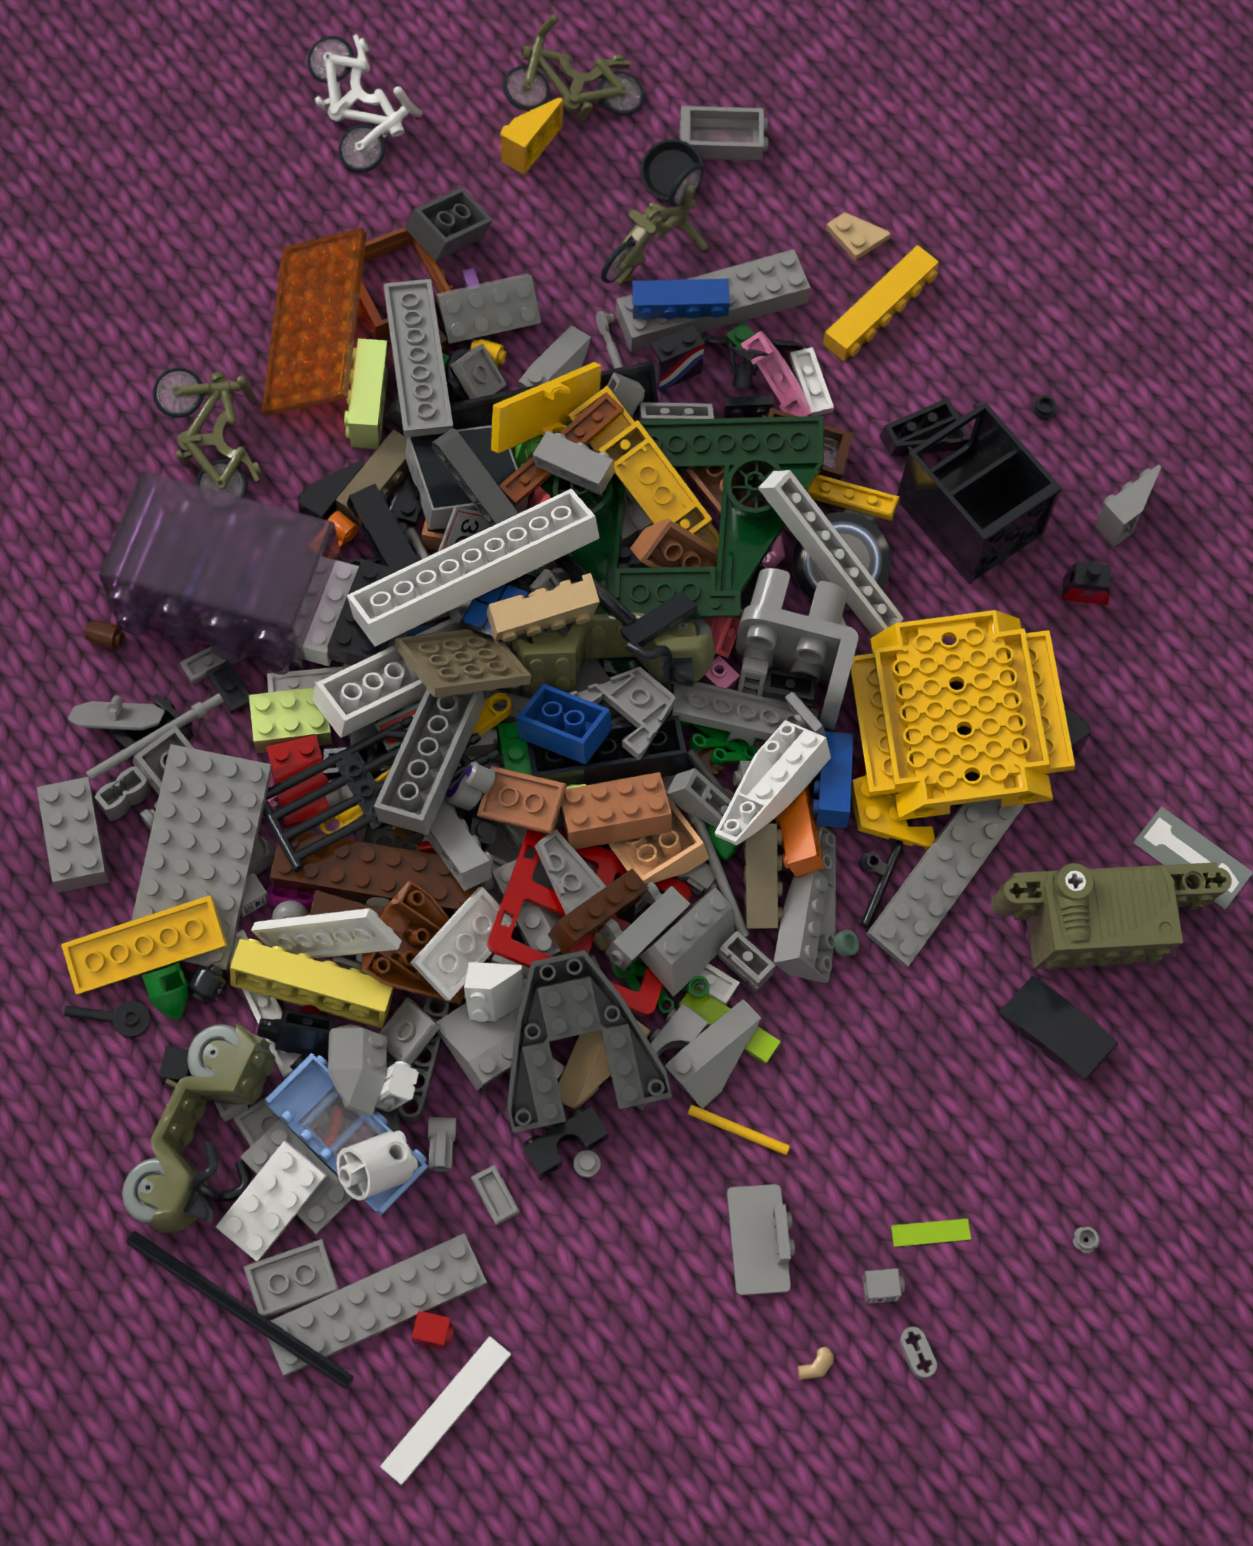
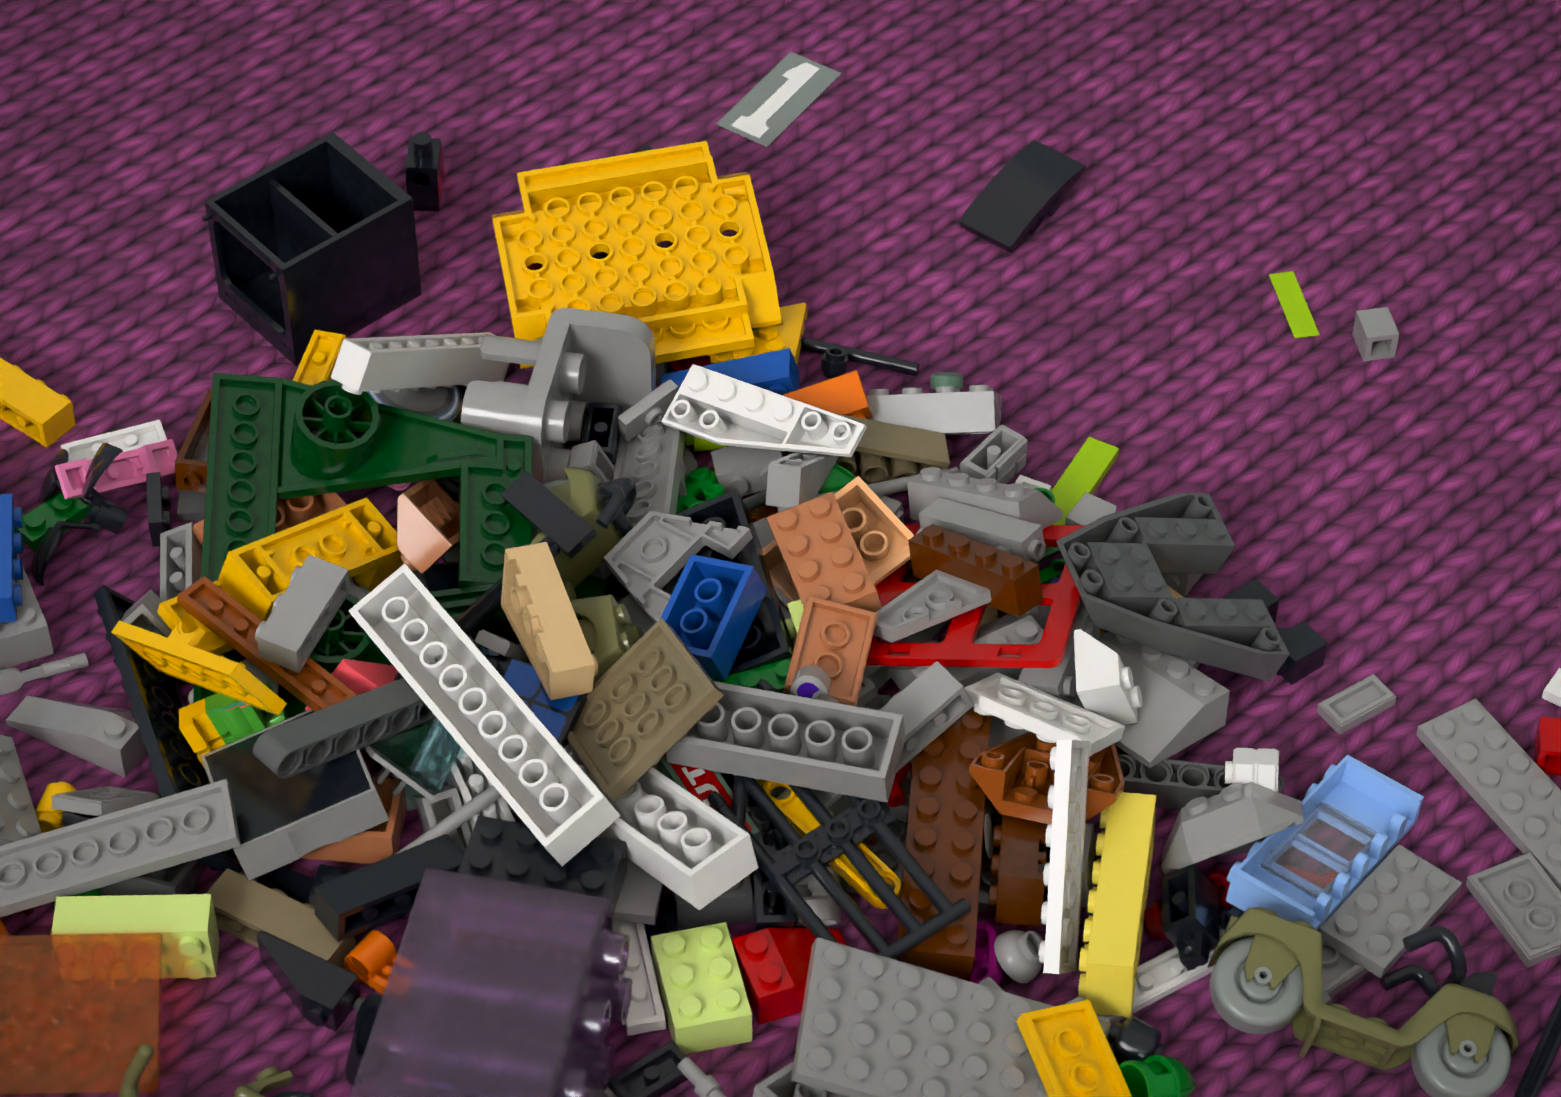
camera: 90 degrees left, 20 degrees down
(174, 1065) = (1268, 1067): black brick -> none
(271, 1201) = (1410, 900): white plate -> none
(375, 1165) = (1372, 788): white cylinder -> none
(408, 1031) = (1172, 784): light grey tile -> none
(441, 1137) = (1304, 758): light grey piece -> none
(587, 1163) = (1292, 612): light grey plate -> none
(678, 356) = (88, 566): black panel -> none
(712, 1056) = (1104, 481): light grey wedge -> none
(738, 1129) = (1216, 459): yellow bar -> none
(760, 1239) = (1346, 439): light grey bracket -> none
(819, 1367) = (1488, 389): tan arm -> none
(922, 425) = (198, 324): black wedge -> none
(923, 1350) = (1442, 306): light grey beam -> none
(940, 878) = (860, 304): light grey plate -> none
(1044, 407) = (157, 223): black plate -> none
(1086, 1232) = (1270, 173): light grey plate -> none
(1107, 913) = (885, 132): olive piece -> none
(1123, 510) = (303, 120): light grey slope -> none

